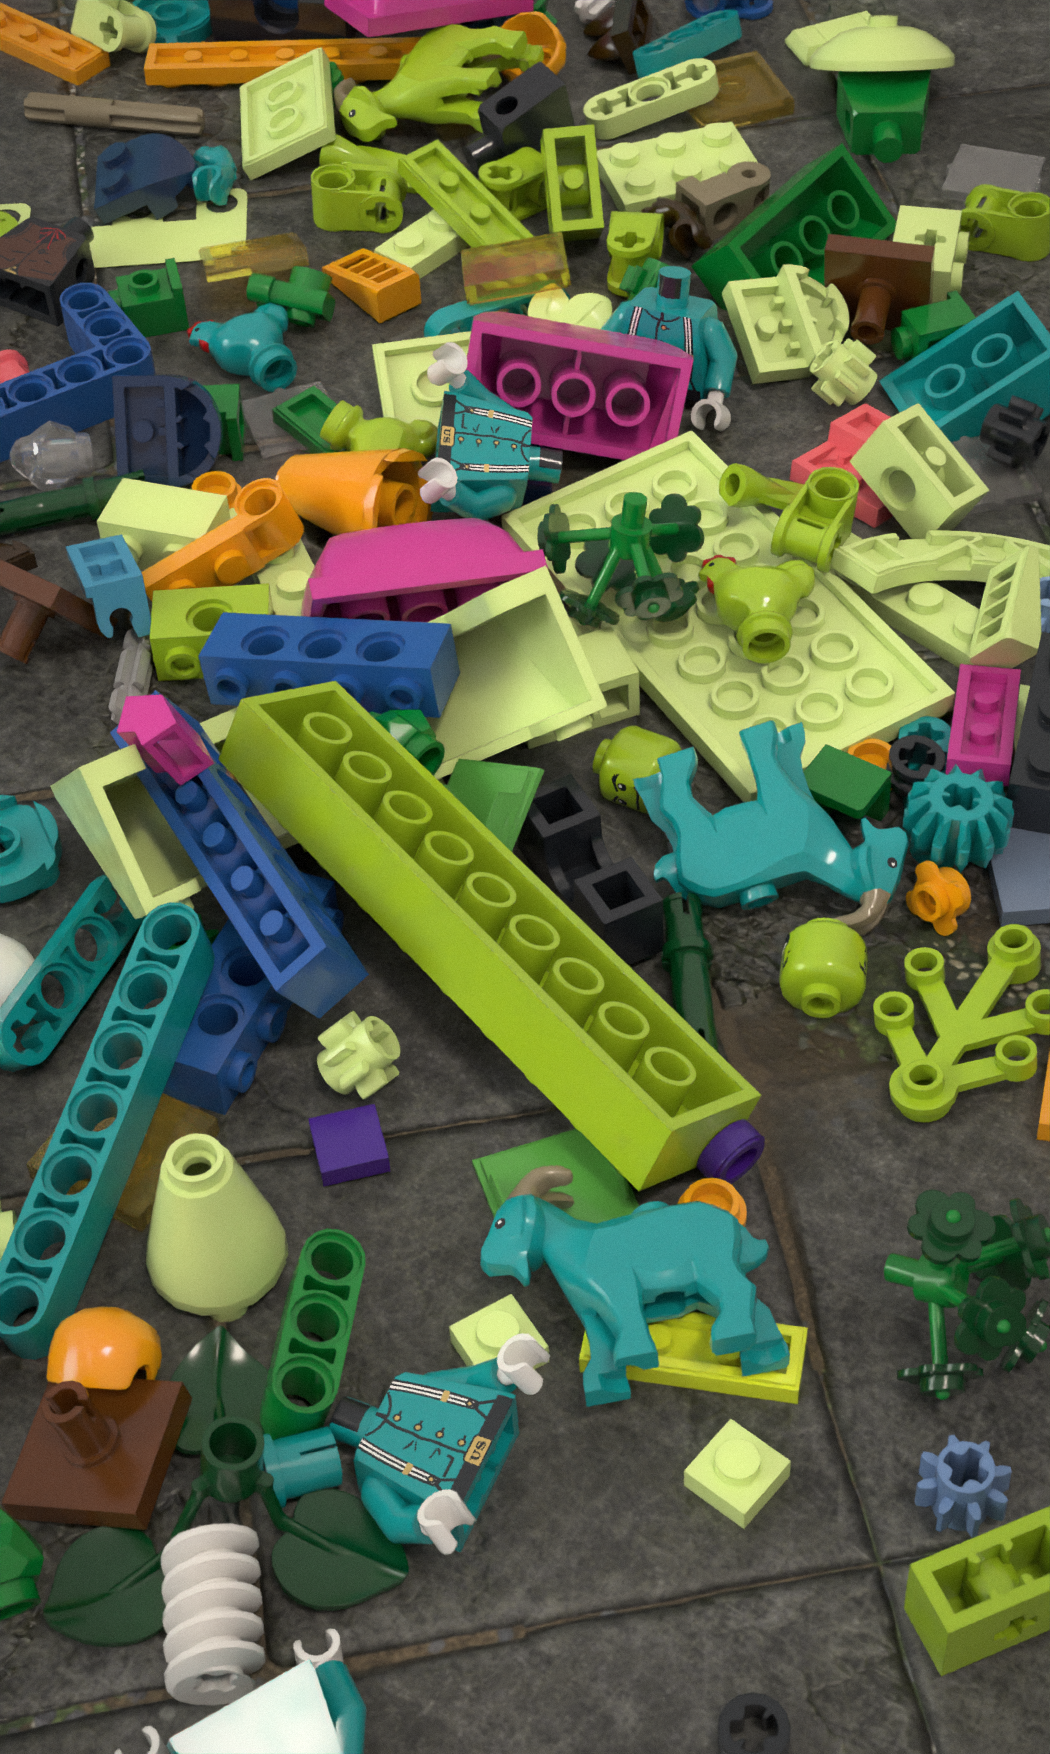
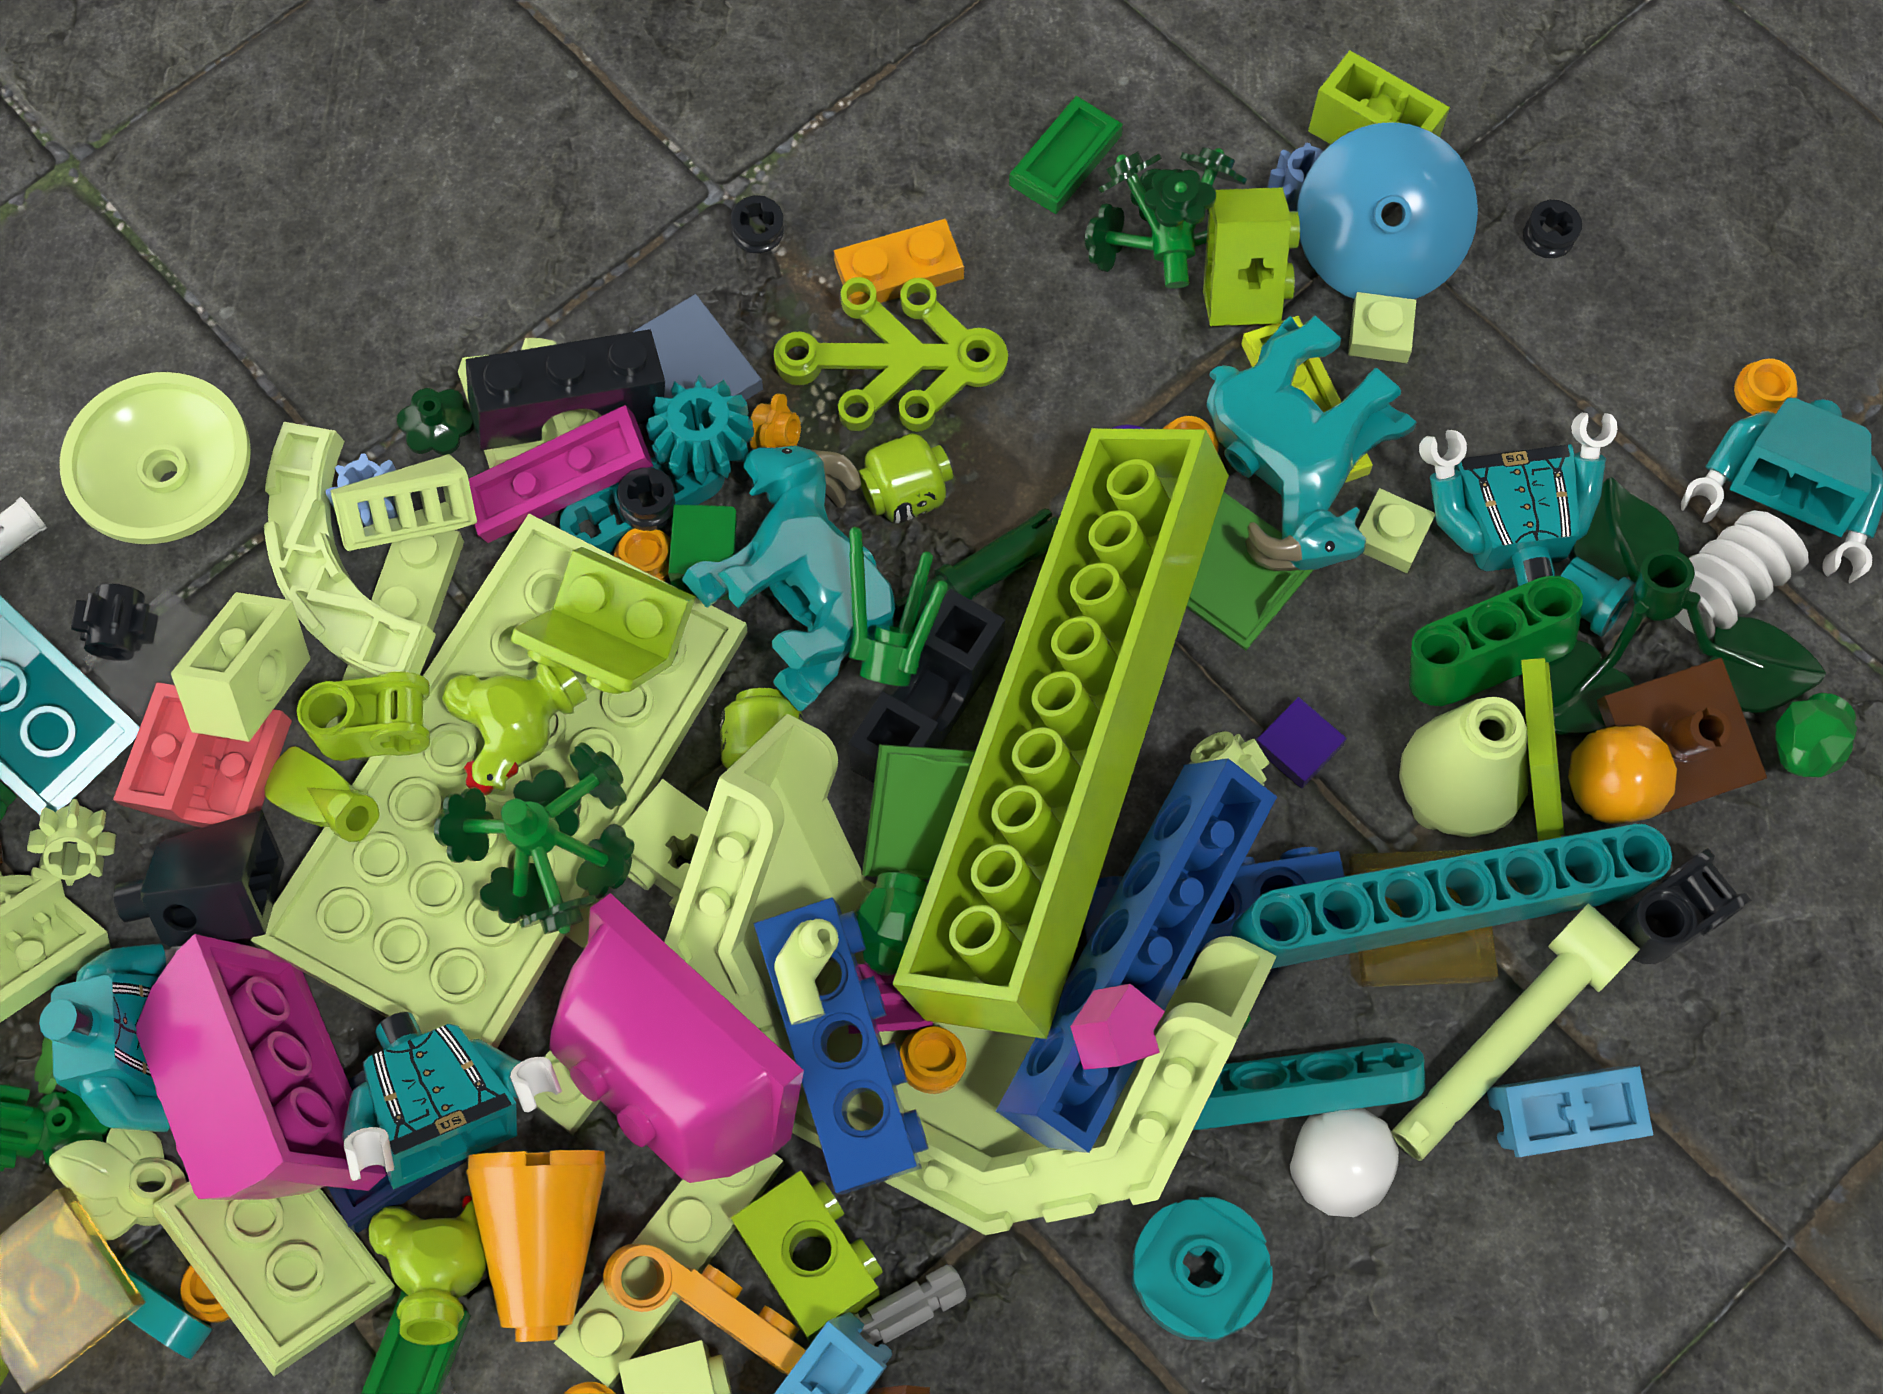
camera: 125 degrees left, 20 degrees up
(170, 1272) = (1542, 749): none -> lime tile
(390, 625) = (799, 966): none -> yellowish green arm
(651, 849) = (892, 651): none -> green plant
(750, 417) = (208, 883): none -> black torso
(783, 655) = (608, 624): none -> lime bracket
(858, 1517) = (1344, 205): none -> dark azure dish
(878, 1330) = (1249, 256): none -> lime brick

